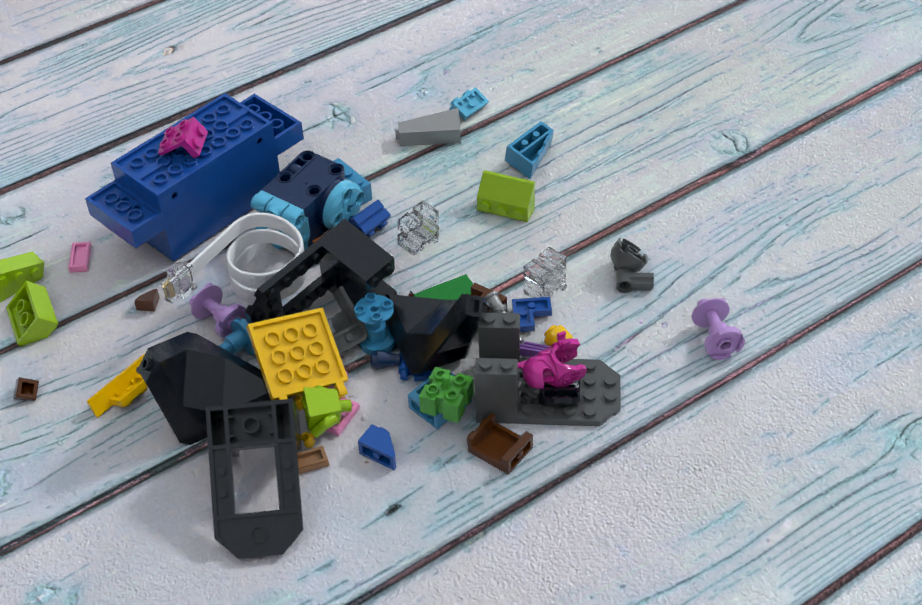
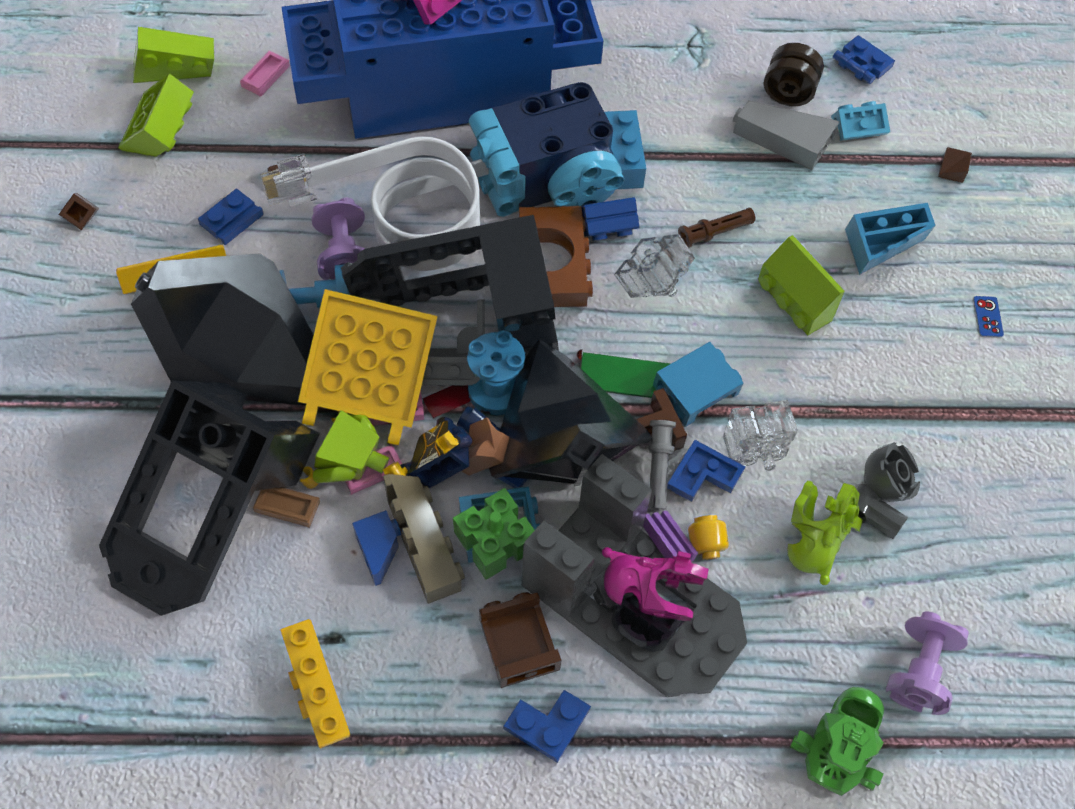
camera: 30 degrees right, 15 degrees up
(130, 341) = (230, 216): none -> blue plate
(353, 359) = (447, 399): none -> dark red sticker
(376, 381) = (437, 454): none -> torso
(400, 364) = (487, 447): none -> nougat slope
(403, 428) = (422, 537): none -> dark tan wedge
(406, 527) = (315, 683): none -> yellow bracket
(413, 97) = (793, 74): none -> dark brown wheel
(436, 191) = (705, 229): none -> reddish brown pin
(443, 74) = (864, 59): none -> blue plate
(489, 270) = (698, 382): none -> dark azure panel
(537, 100) = (955, 164): none -> reddish brown slope
(552, 477) = (552, 732): none -> blue plate
(614, 163) = (988, 316): none -> blue sticker
(617, 302) = (822, 538): none -> lime helmet
(707, 386) = (852, 739): none -> bright green helmet

